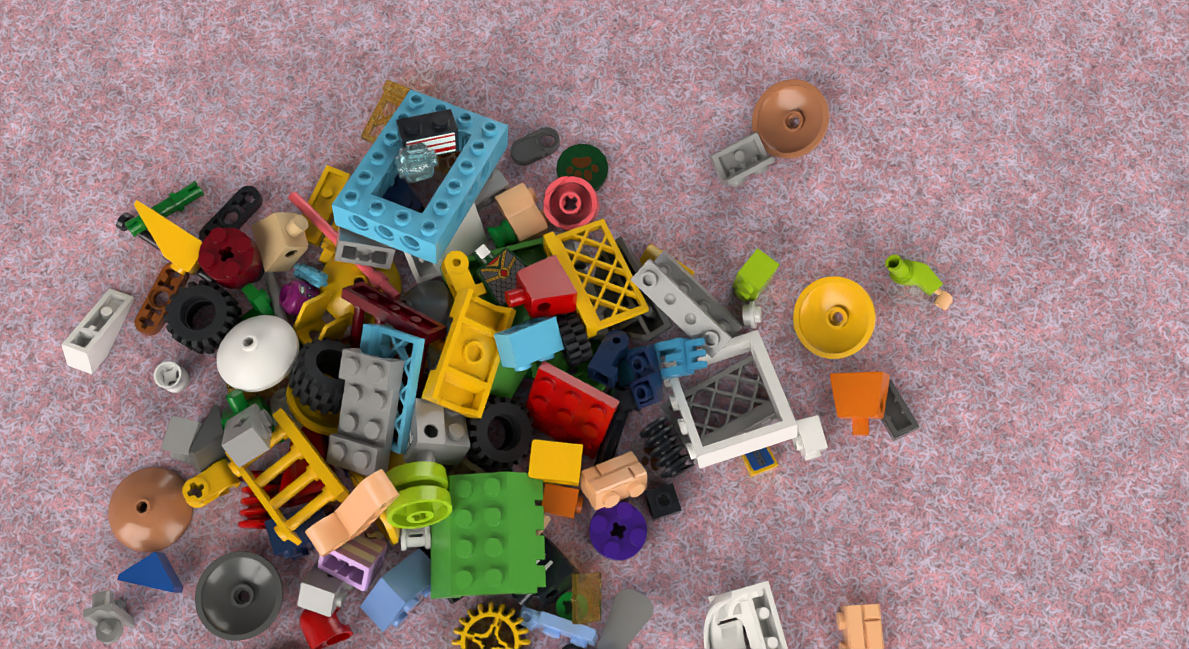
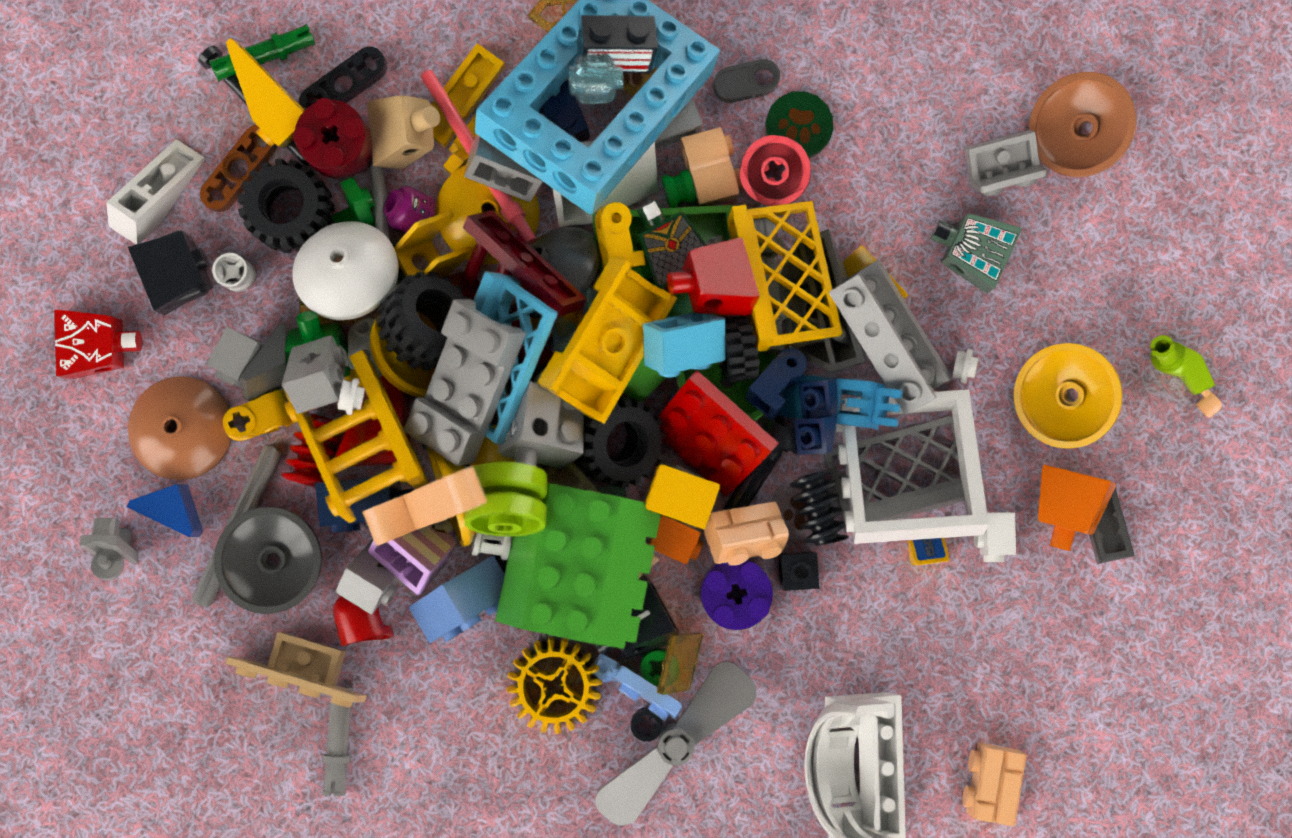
camera: 10 degrees right, 10 degrees up
(67, 459) = (91, 343): none -> red torso
(122, 387) = (171, 270): none -> black torso
(216, 549) = (248, 500): none -> light grey axle
(278, 444) = (350, 396): none -> white plate
(310, 275) = (429, 184): medium azure axle -> none
(737, 226) = (977, 248): none -> torso
(754, 276) = (983, 320): lime piece -> none

